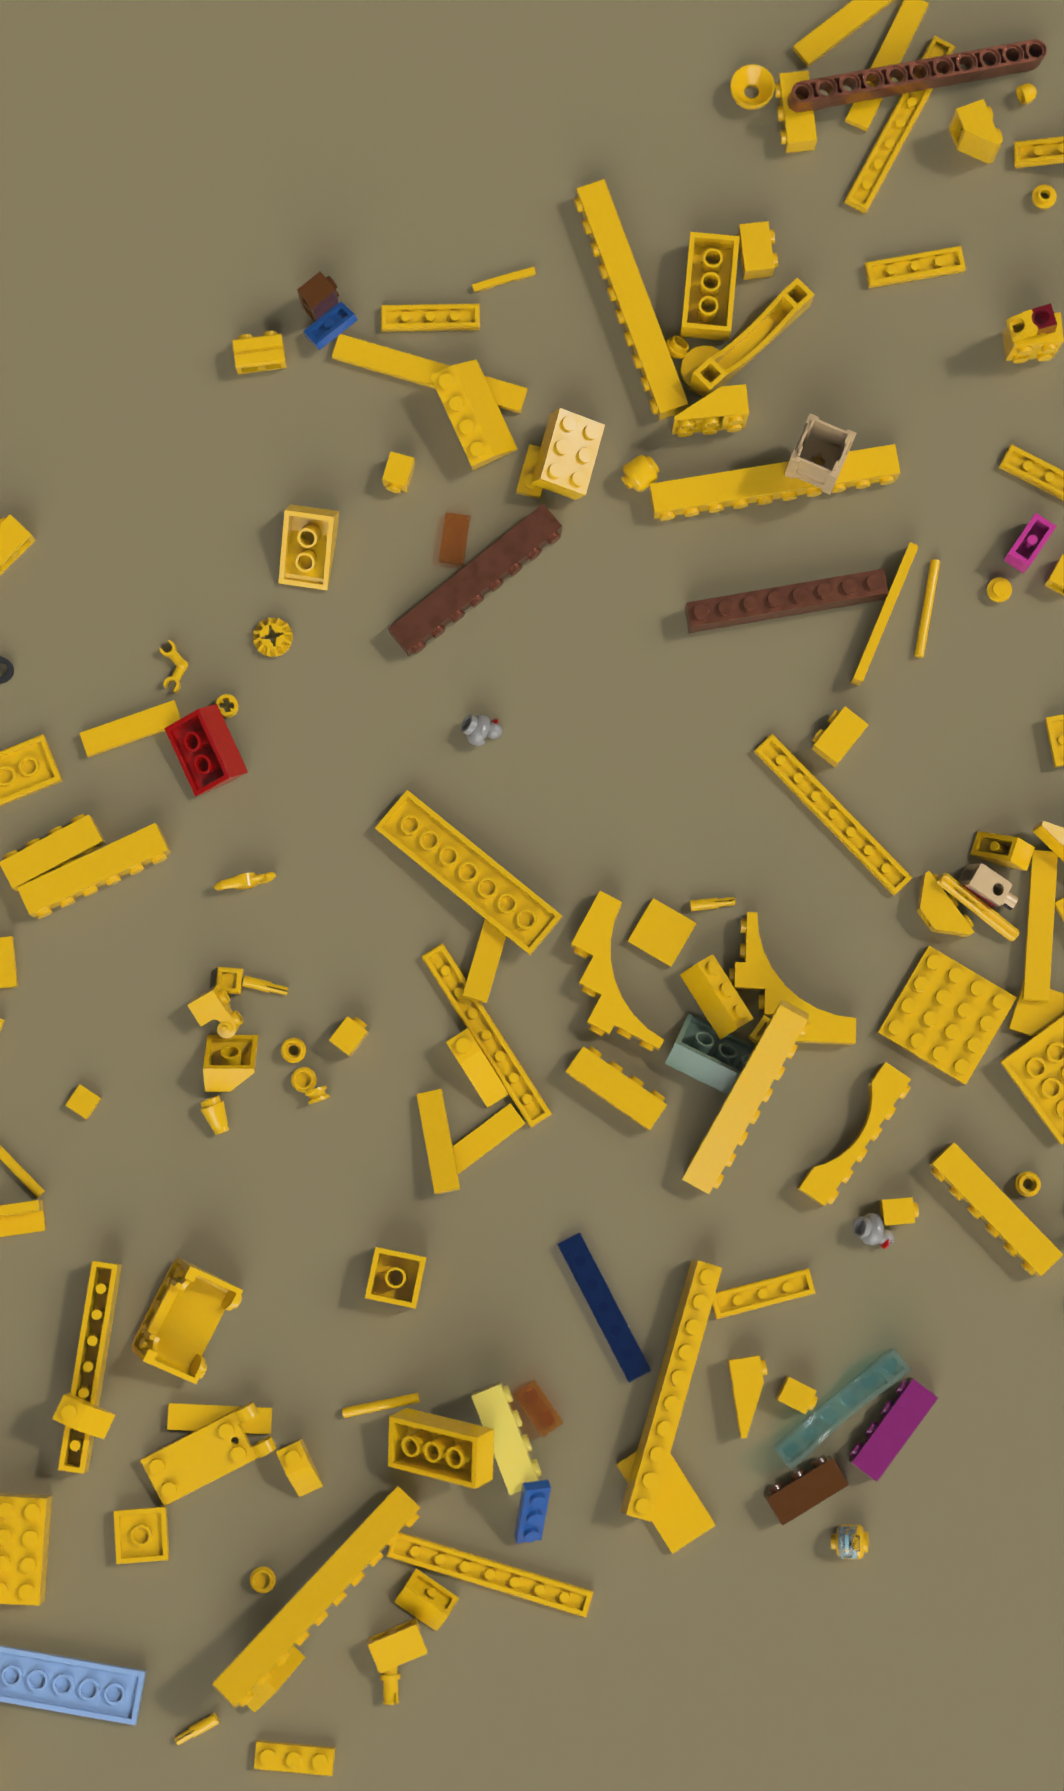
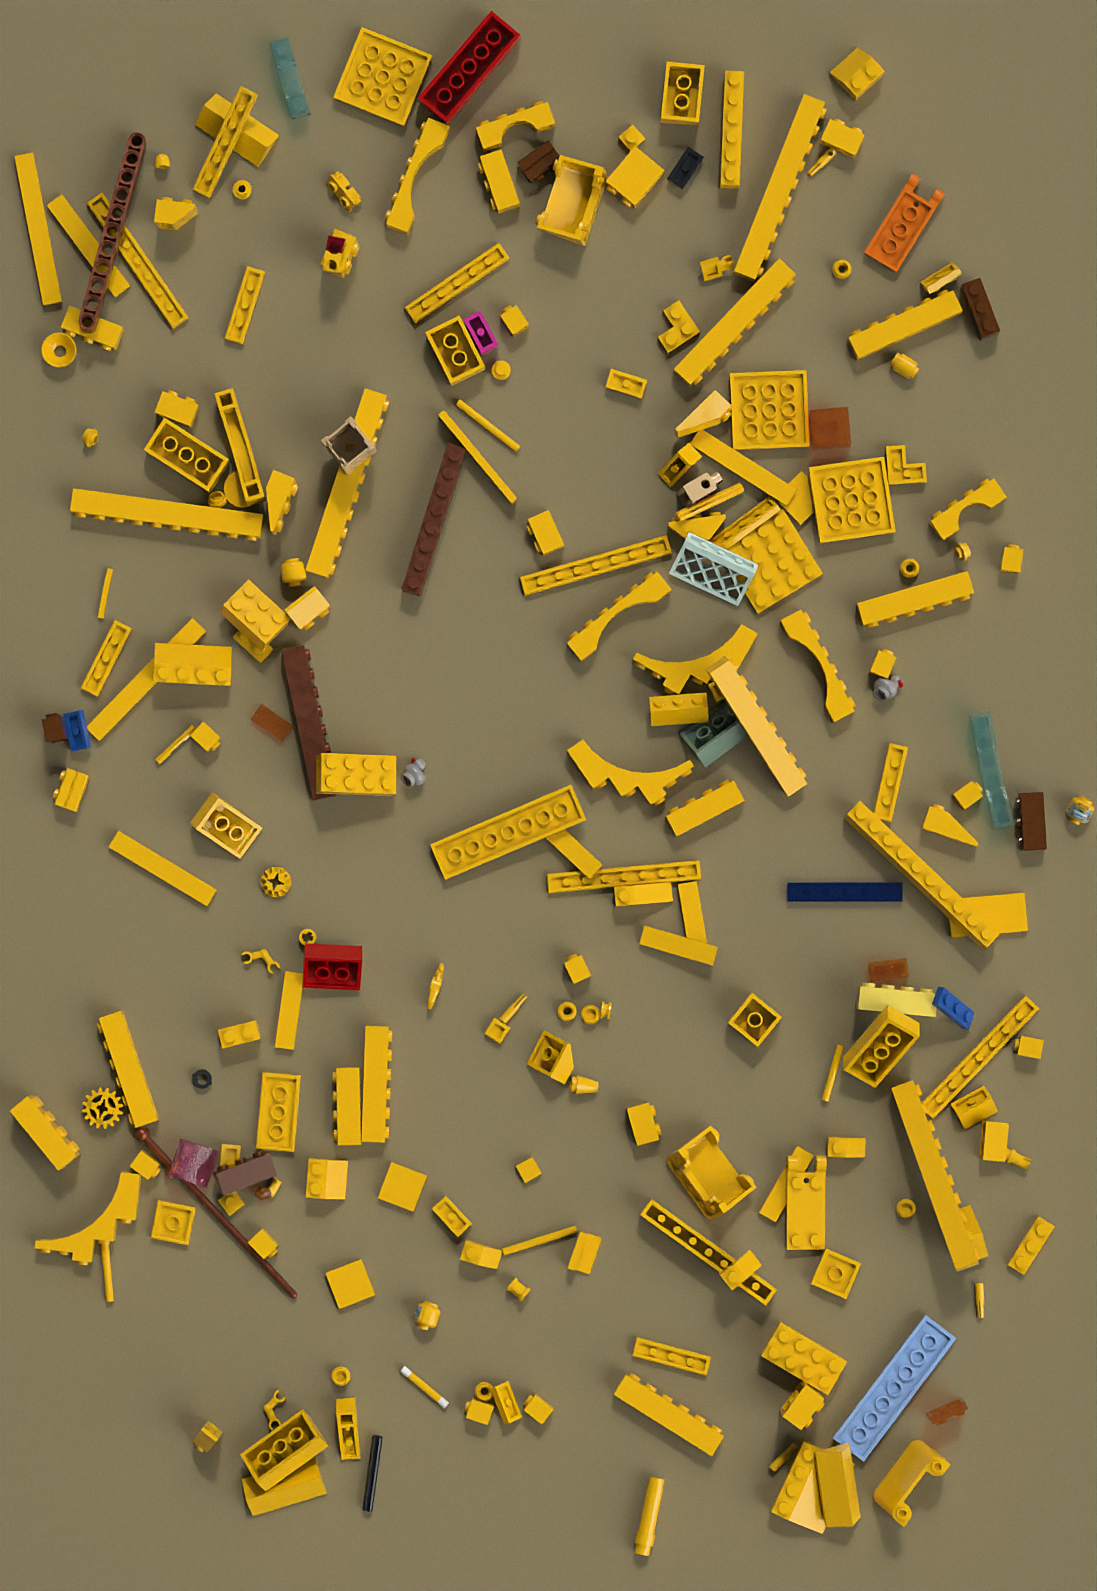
camera: 60 degrees left, 5 degrees up
(39, 1760) = (940, 1414): none -> clear orange plate
(73, 684) = (239, 1034): none -> yellow piece
(205, 1209) = (643, 1123): none -> yellow brick
(215, 1005) = (509, 1049): yellow brick -> none
(222, 502) = (162, 868): none -> yellow tile
(369, 442) = (175, 744): none -> yellow piece
(443, 660) = (355, 774): none -> yellow brick
(533, 1628) = (1028, 1046): none -> yellow brick
(607, 509) = (308, 608): none -> yellow slope
(661, 932) = (615, 722): yellow tile -> none
(672, 171) = (90, 437): none -> yellow plate
(711, 903) = (613, 679): yellow piece -> none
(837, 892) = (650, 591): none -> yellow arch
(893, 1428) = (1022, 743): magenta brick -> none
(922, 955) = (722, 558): none -> light aqua fence
(972, 962) = (746, 523): none -> yellow tile
(993, 524) = (455, 350): none -> yellow brick

